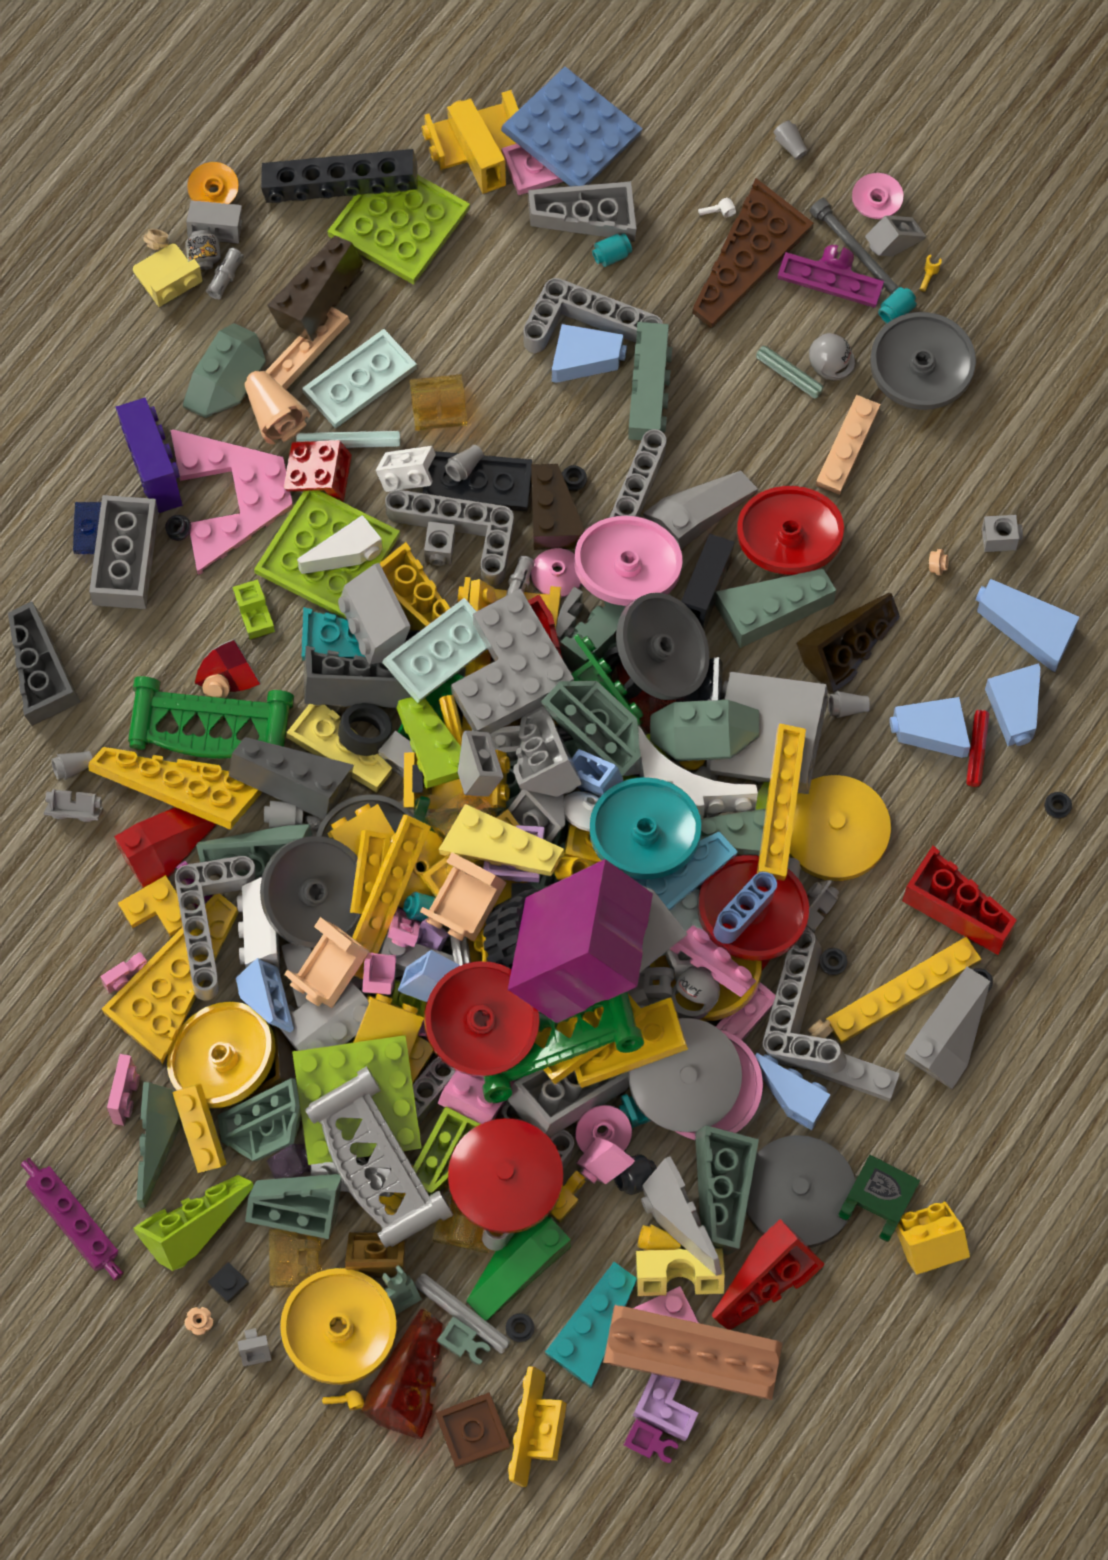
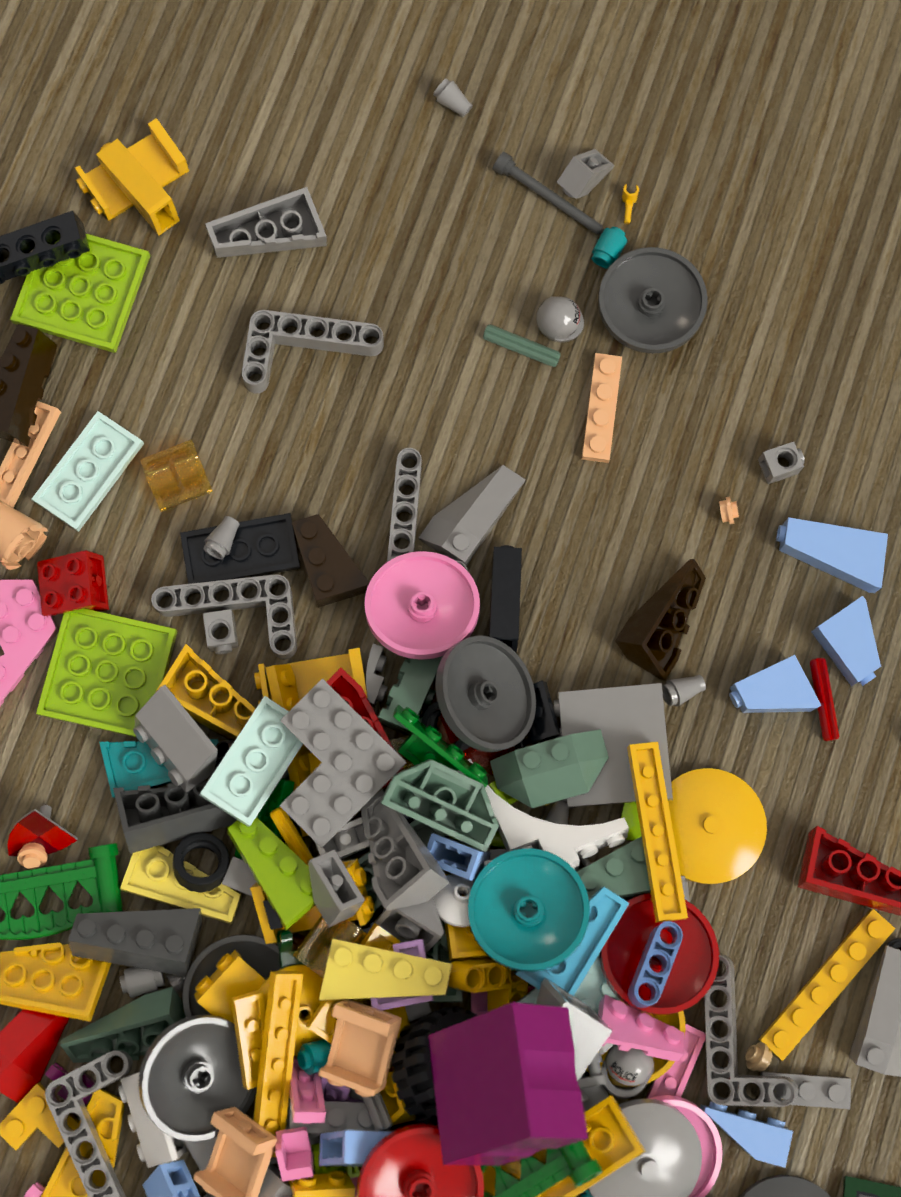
camera: 20 degrees left, 10 degrees up
(253, 609) = (48, 756): lime slope -> none
(345, 548) = (127, 665): white slope -> none
(355, 439) = (97, 539): light aqua axle -> none
(406, 468) = (163, 558): white bracket -> none
(521, 575) = (314, 650): light grey pin -> none
(527, 171) = (202, 191): bright pink plate -> none
(544, 576) = (337, 635): bright pink dish -> none
(571, 129) = (229, 144): medium blue plate -> none
(574, 471) = (338, 511): black plate -> none
(586, 353) = (312, 381): light blue slope -> none
(612, 249) = (307, 262): teal brick -> none
(649, 379) = (385, 396): sand green wedge -> none
(725, 206) = (407, 185): white hand -> none
(752, 248) = (449, 217): reddish brown wing -> none
(773, 604) = (573, 607): sand green wedge -> none
(790, 530) = (573, 519): red dish -> none
(820, 898) = (717, 907): light grey hinge -> none
(832, 276) = (535, 233): magenta plate -> none
(833, 953) = (758, 974): black plate -> none
(877, 187) = (556, 125): bright pink dish -> none

